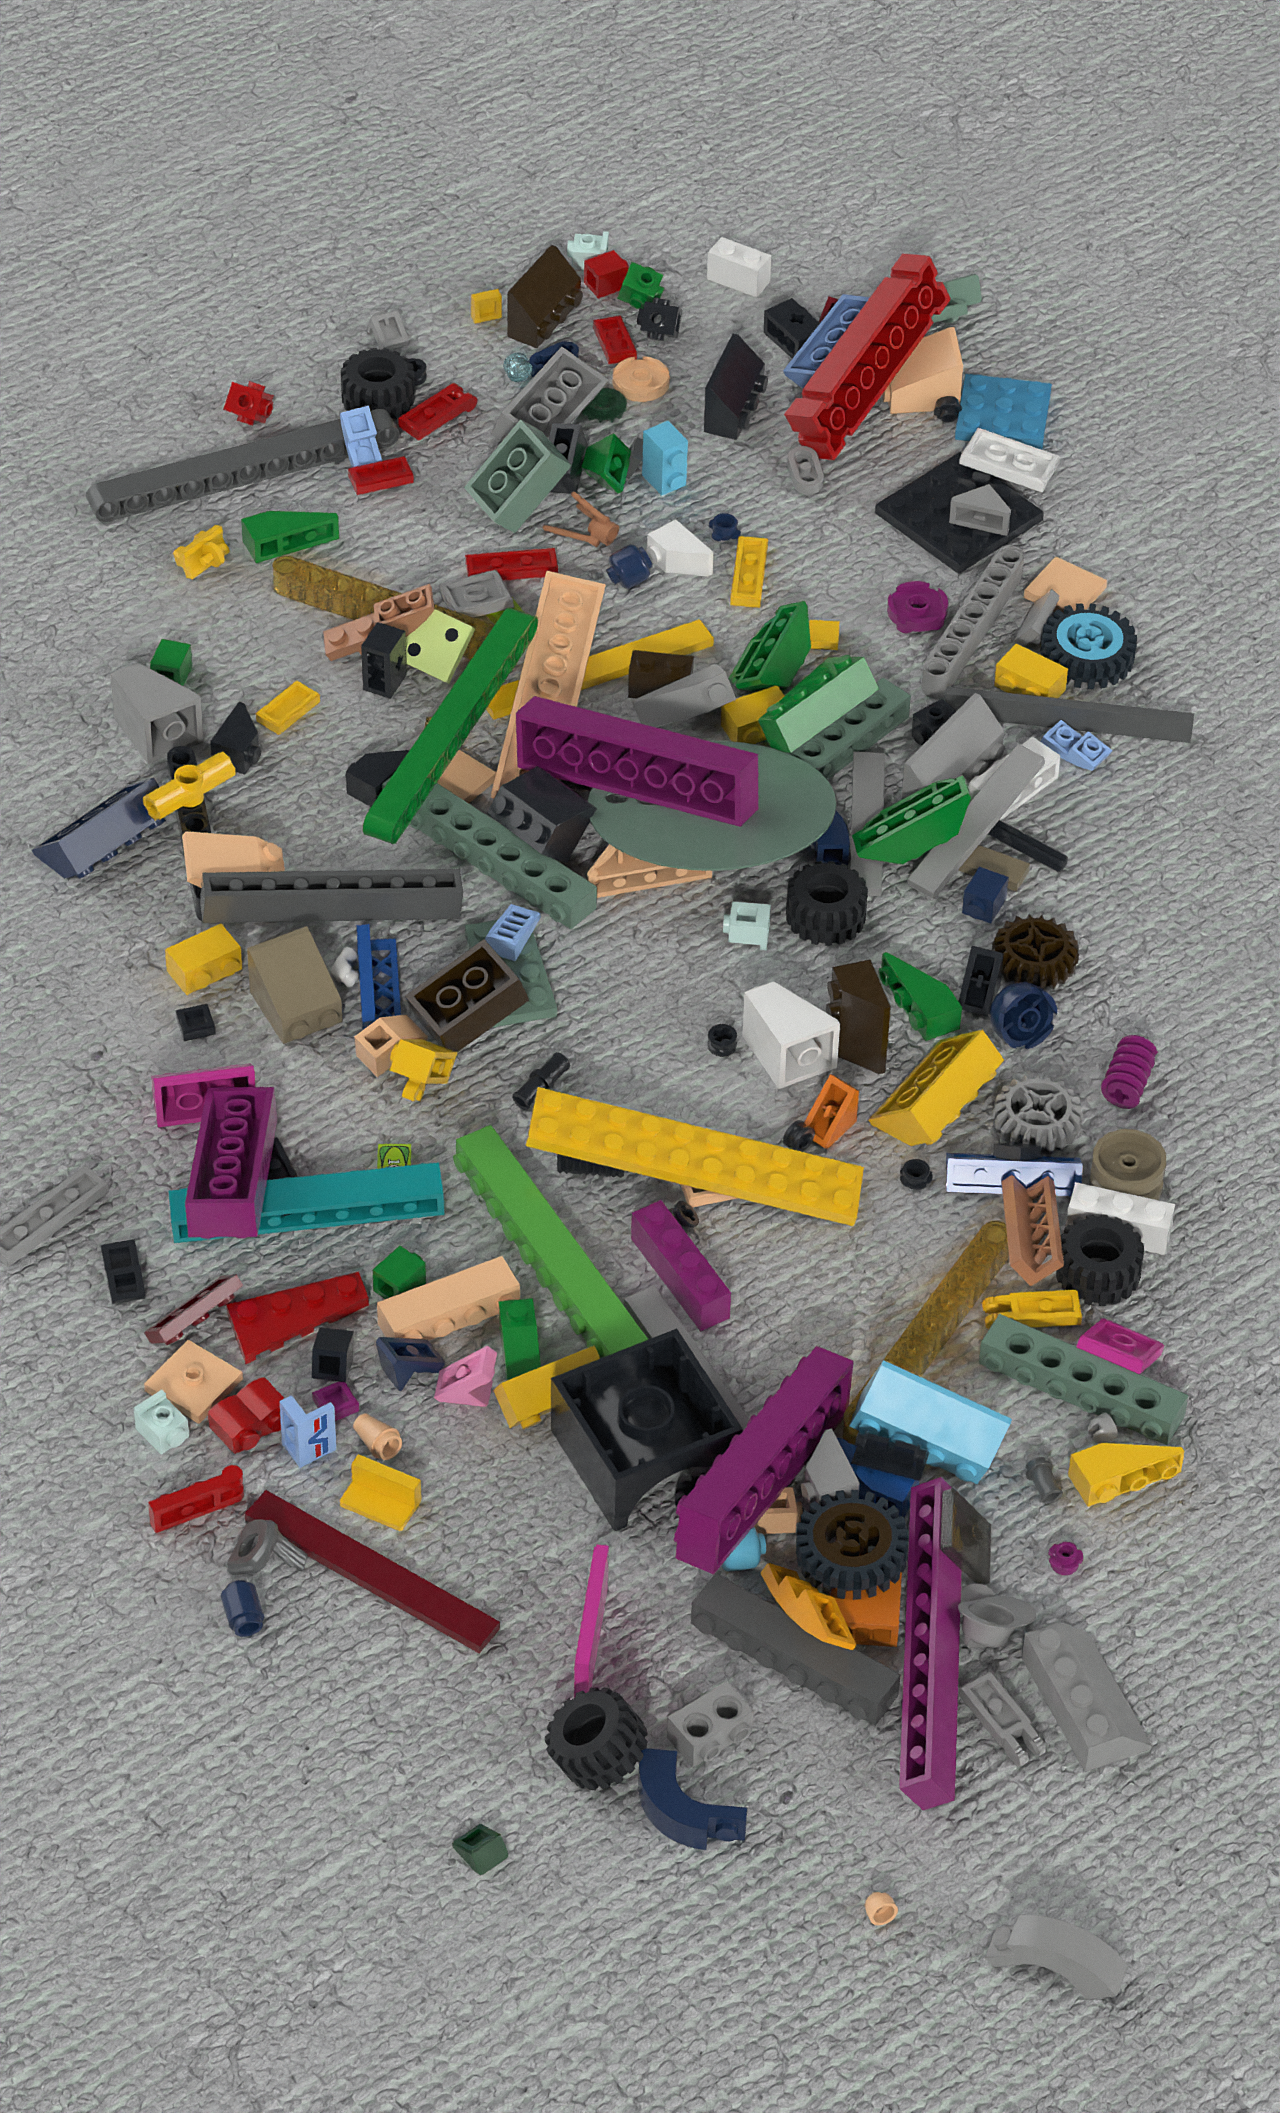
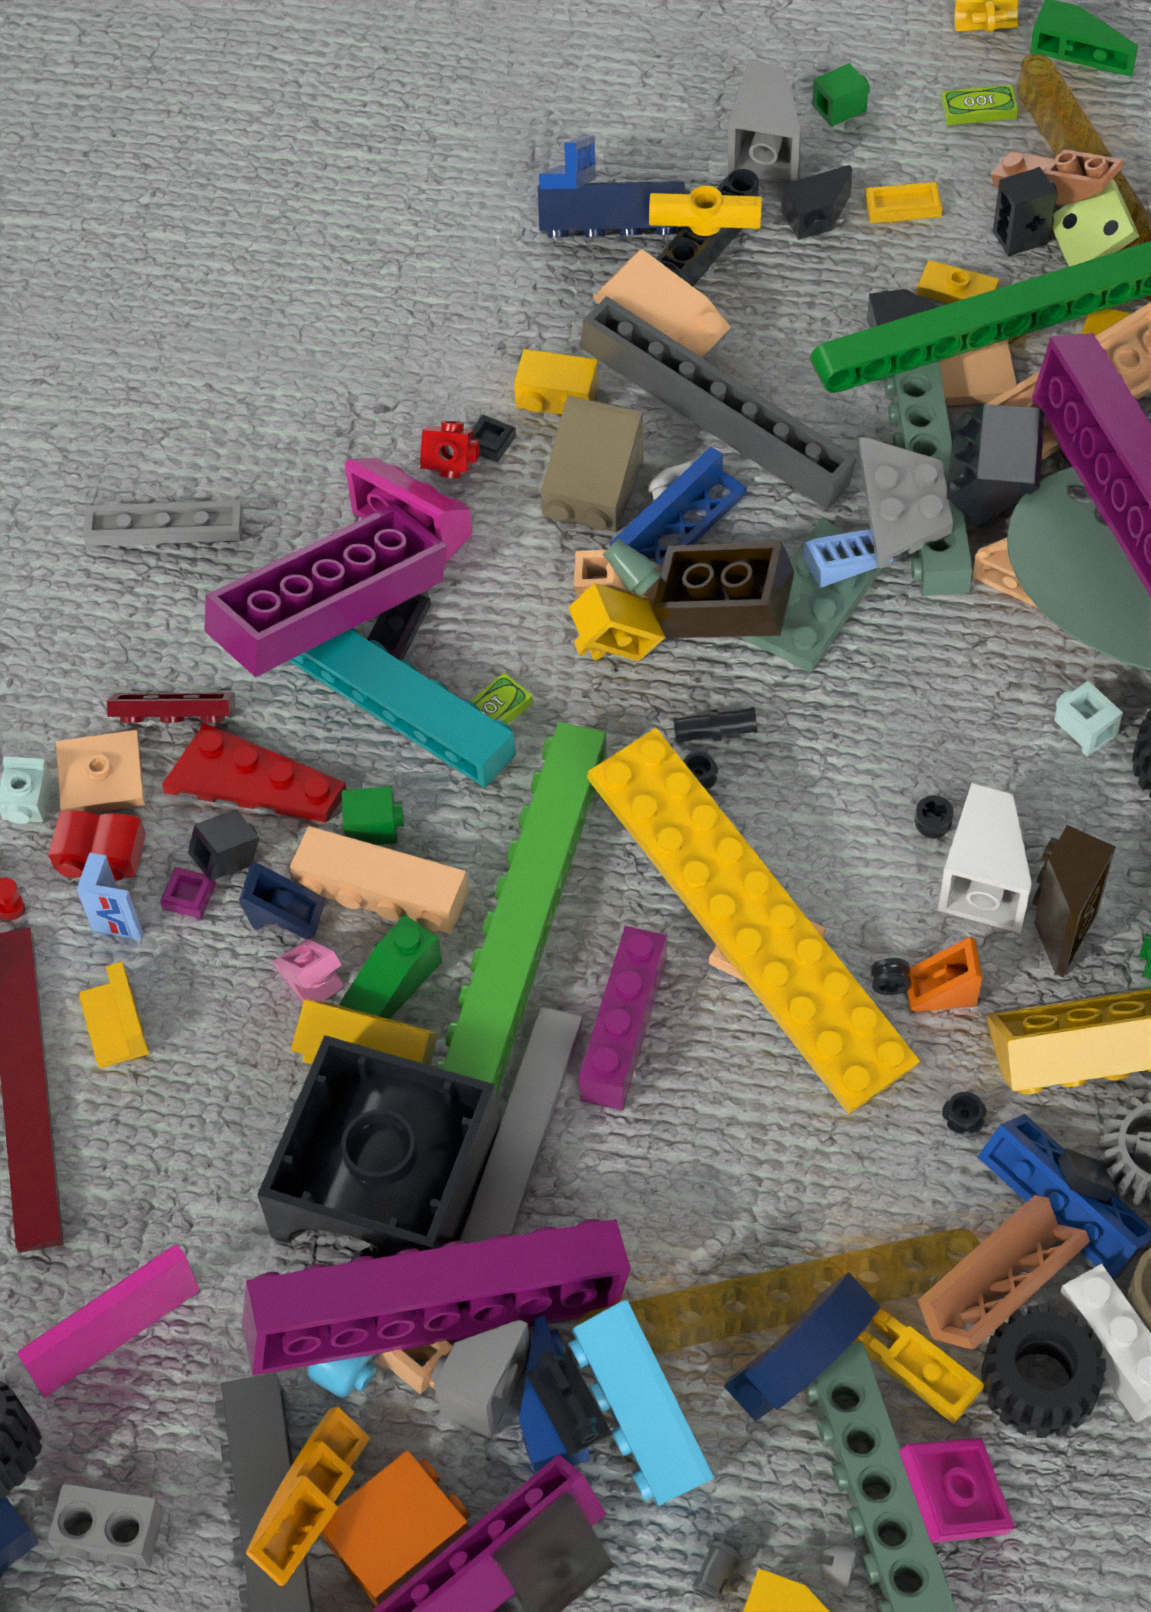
camera: 50 degrees right, 10 degrees up
(71, 812) = (578, 167): none -> blue fence
(123, 1271) = (165, 626): black slope -> none
(186, 1041) = (435, 450): none -> red brick
(265, 616) = (979, 105): none -> lime tile
(379, 1437) = (175, 958): light nougat cone -> none
(384, 735) = (953, 284): none -> yellow plate
(406, 1019) = (632, 567): none -> sand green cone
(511, 873) = (903, 498): none -> light grey wing
(685, 1215) = (689, 959): black bush -> none
(847, 1561) = (386, 1450): wheel -> none
(983, 1338) = (805, 1349): none -> dark blue arch

